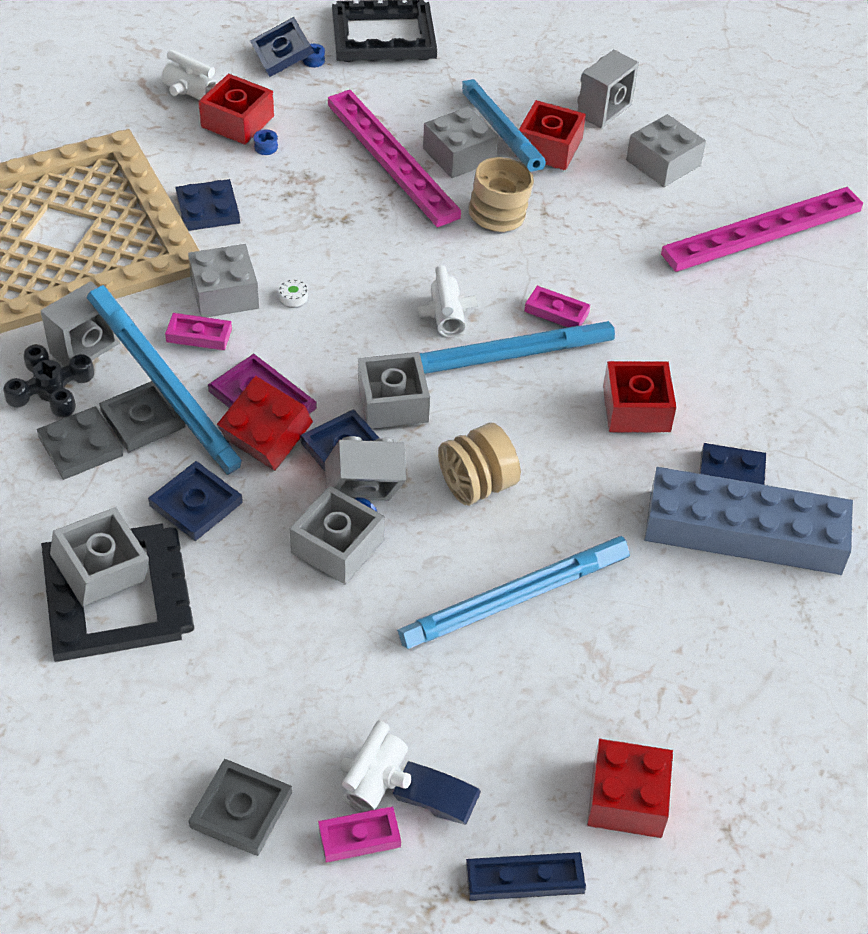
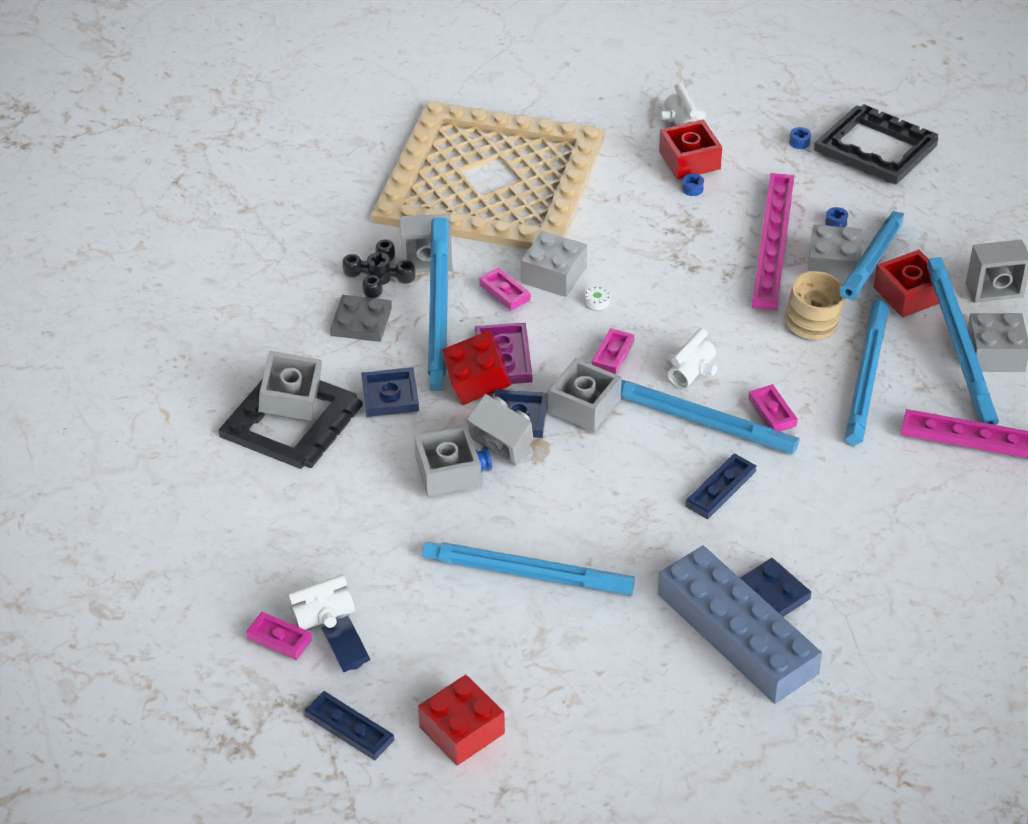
camera: 45 degrees right, 5 degrees down
(141, 416) = (408, 322): dark grey plate -> none
(207, 204) = (604, 208): dark blue plate -> none
(240, 807) = (231, 577): dark grey plate -> none
(282, 46) = (776, 119): dark blue plate -> none
(365, 333) = (613, 350): none -> dark pink plate
(421, 111) = (836, 217): none -> blue bush
(479, 463) = (584, 471): tan wheel -> none
(588, 405) = (720, 486): none -> dark blue tile
(596, 235) = (866, 375): none -> dark azure piece
(639, 396) = (753, 497): red brick -> none
(653, 166) = (962, 343): none -> dark azure piece

